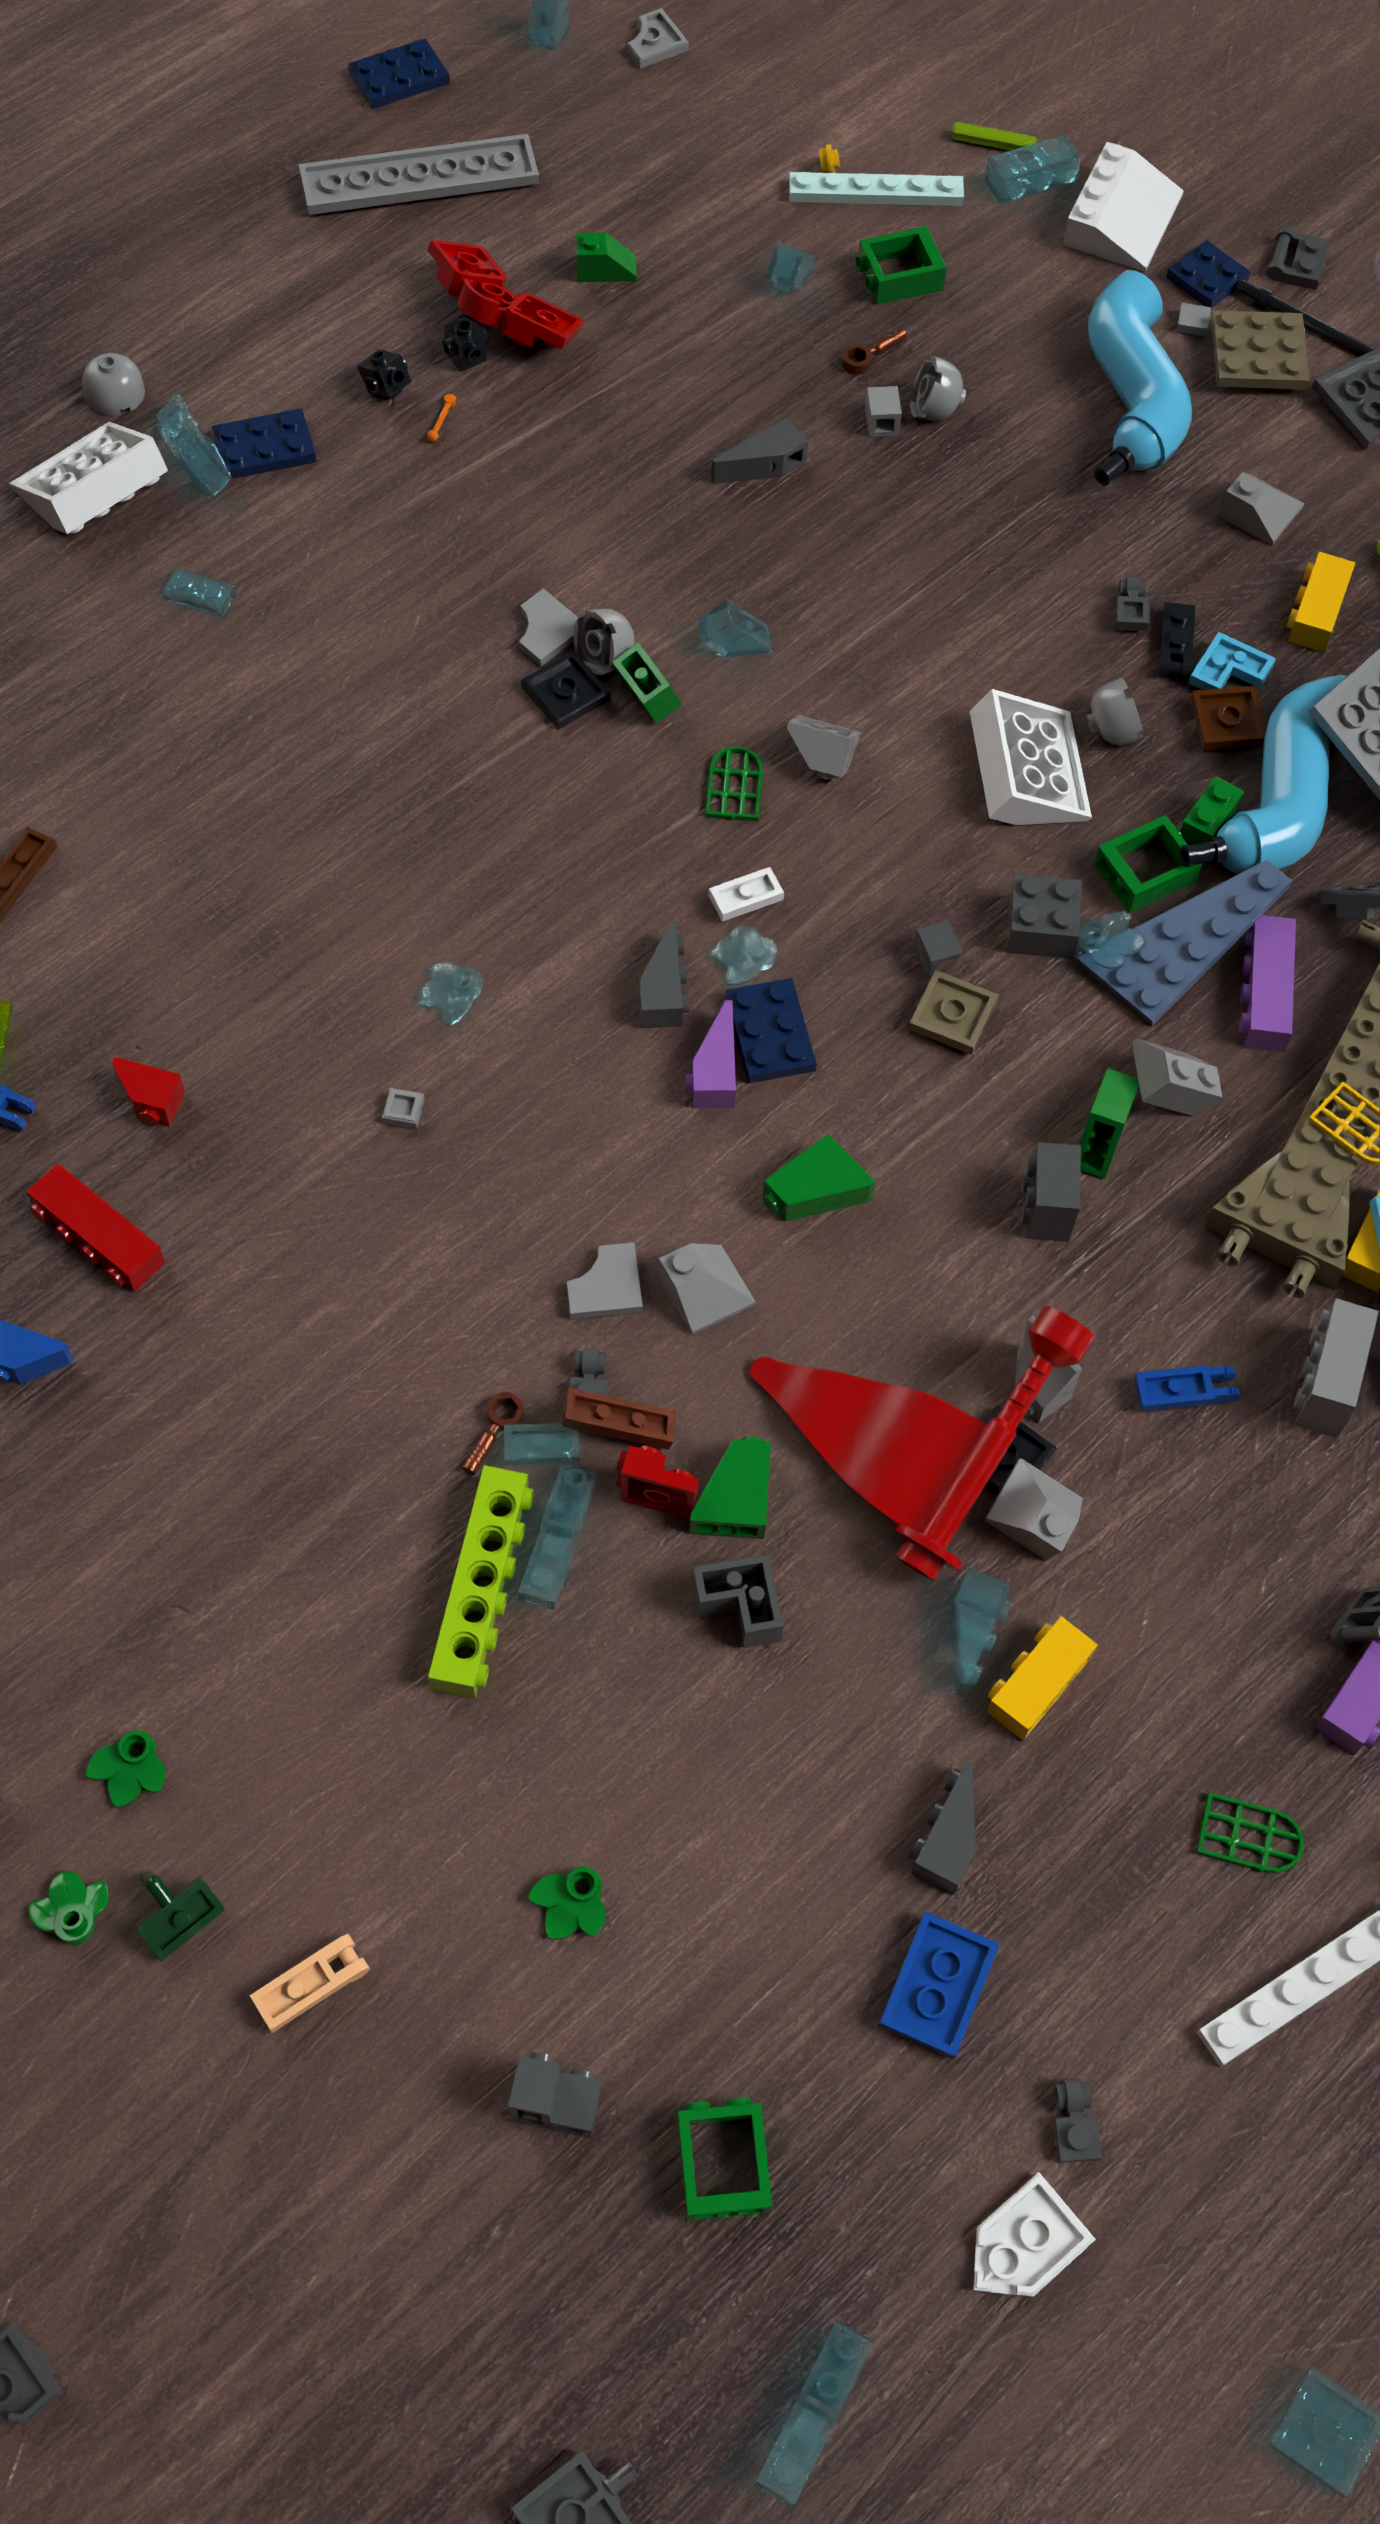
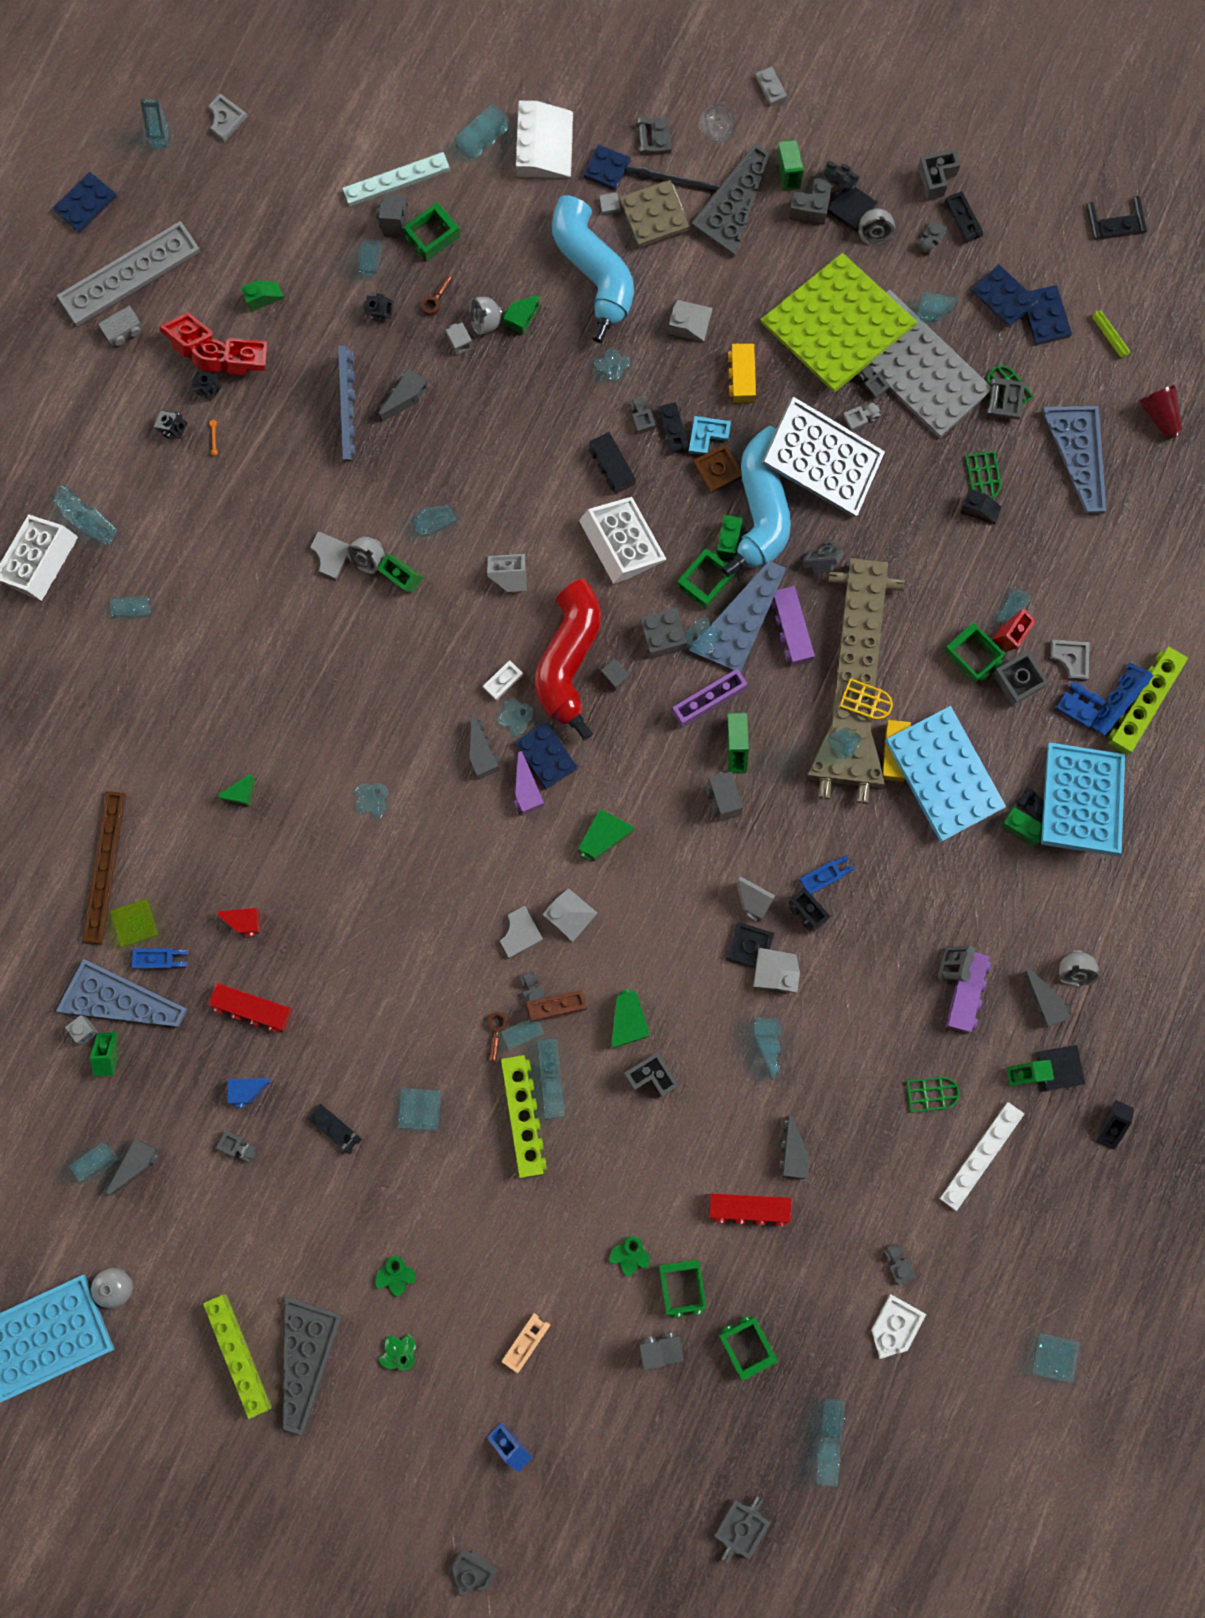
camera: 15 degrees left, 15 degrees up
(112, 384) = (19, 490): light grey cylinder -> none
(142, 1476) = (334, 1128): none -> black plate
(178, 1916) = (451, 1338): dark green plate -> none
(192, 2166) = (509, 1447): none -> blue slope
(239, 901) = (240, 792): none -> green slope
(264, 443) = (122, 495): dark blue plate -> none
(304, 1502) = (419, 1109): none -> clear light blue plate
(373, 232) = (121, 326): none -> light grey brick
(403, 1108) = (376, 876): light grey tile -> none
(565, 690) = (356, 590): black tile -> none
(649, 1484) = (581, 1034): red plate -> none
(654, 1956) = (679, 1266): none -> green window
(672, 424) = (347, 396): none -> sand blue wing
(726, 792) = (467, 620): green window -> none
(776, 329) = (378, 307): none -> black brick
(829, 159) = (362, 170): yellow plate -> none
(829, 1902) = (750, 1208): none -> red brick
(849, 220) = (393, 214): none -> dark grey brick
(868, 886) = (566, 654): none -> red animal
(911, 1449) = (705, 969): red flag -> none
(939, 1985) = (814, 1226): blue plate -> none
(953, 1012) = (636, 708): dark tan plate -> none
(990, 137) = (450, 115): lime axle -> none
(995, 410) = (521, 313): none -> green slope
(1040, 1677) = (808, 1056): yellow brick -> none
(1056, 652) = (611, 463): none -> black brick
(1082, 1035) = (709, 698): none -> medium lavender brick
(1112, 524) = (612, 364): none -> clear light blue plate
(1114, 714) = (656, 493): light grey cylinder -> none
(1134, 1428) = (809, 910): none -> black brick
(1175, 1078) = (763, 703): light grey slope -> none
(1298, 1169) = (844, 743): none -> clear light blue slope
(1335, 1367) = (896, 838): light grey brick -> none

